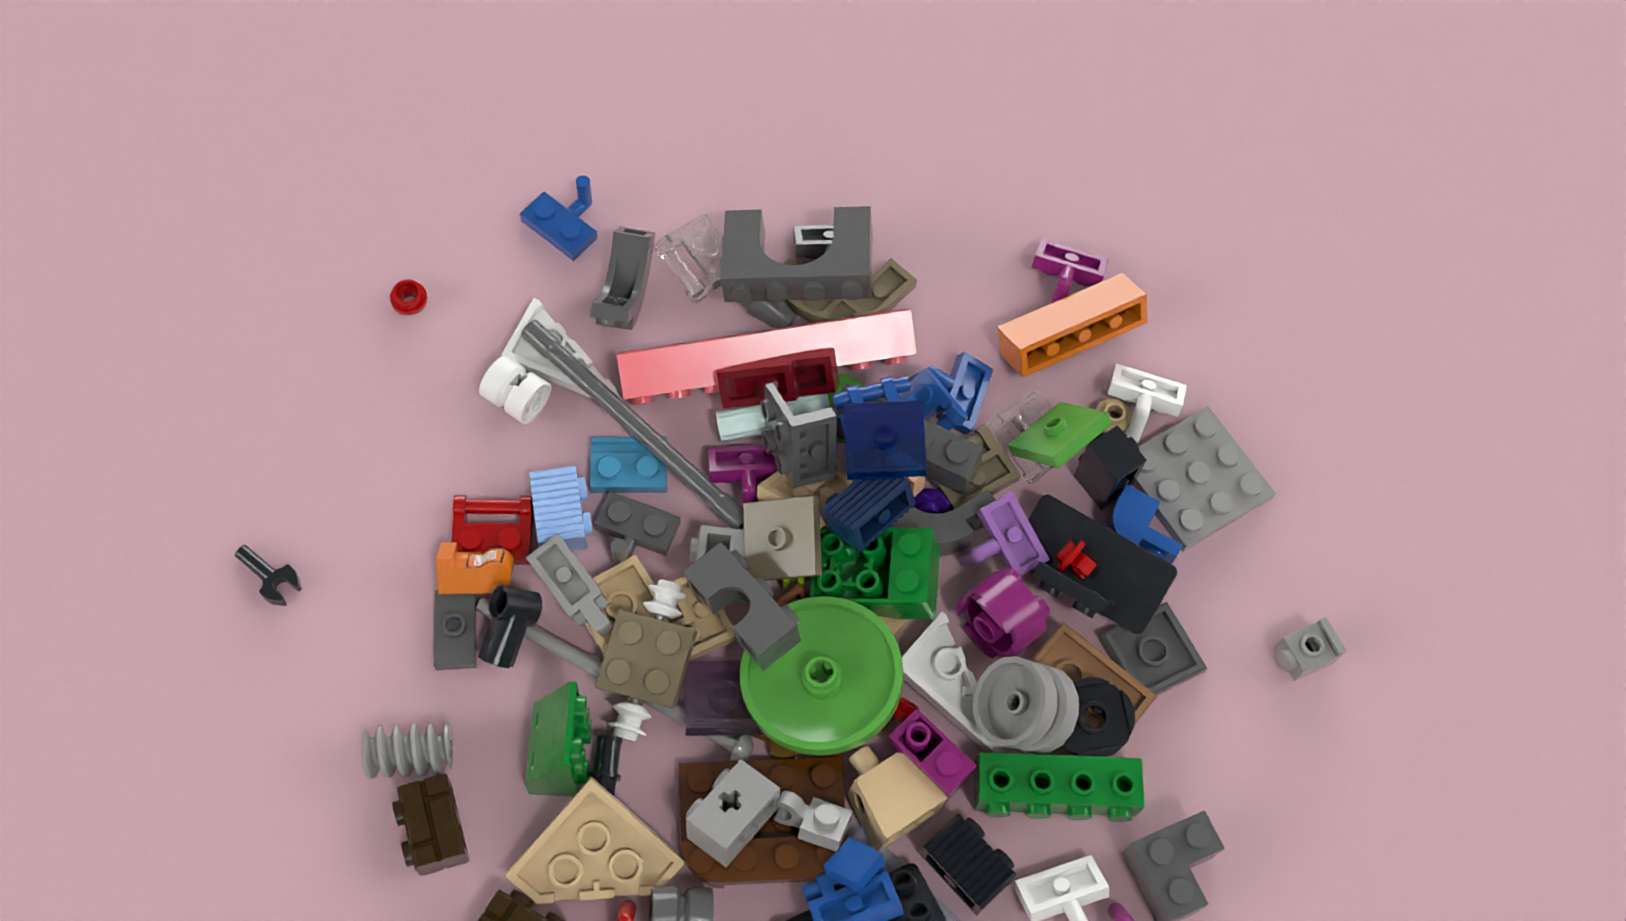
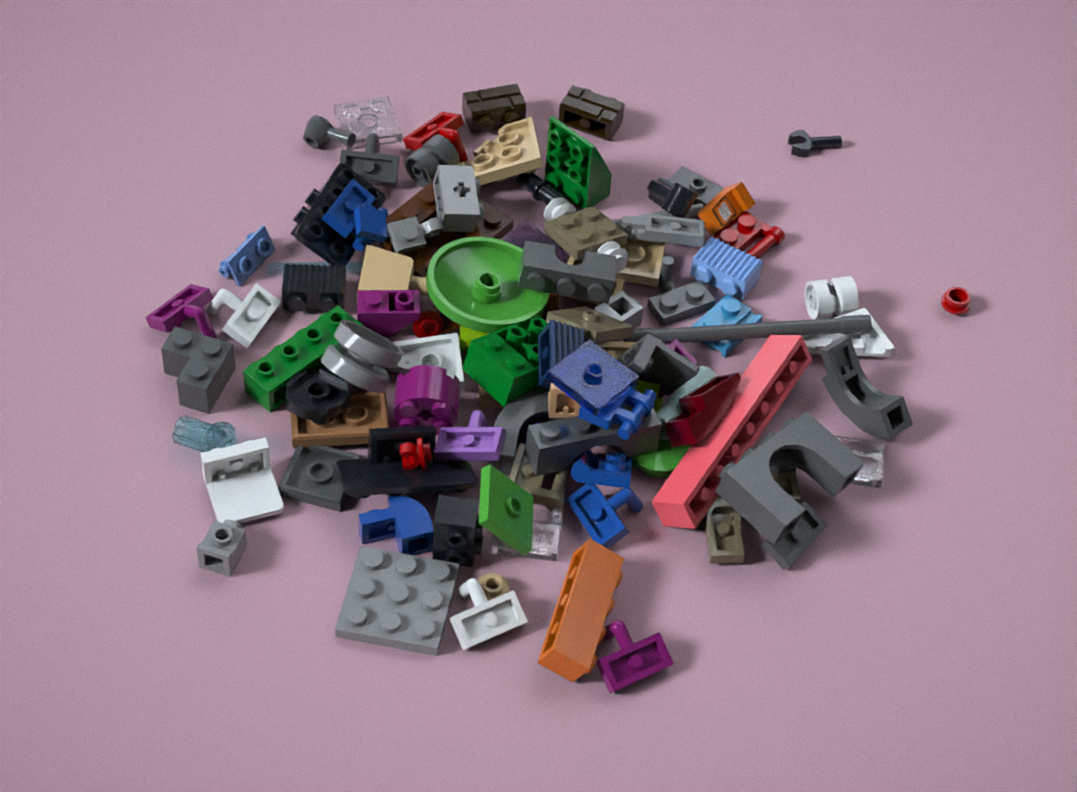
camera: 135 degrees right, 15 degrees down
(407, 751) = (642, 124): light grey piece -> none
(560, 224) = (950, 409): blue plate -> none
(1230, 780) = (203, 435): none -> clear light blue piece
(1240, 694) = (241, 481): none -> white bracket

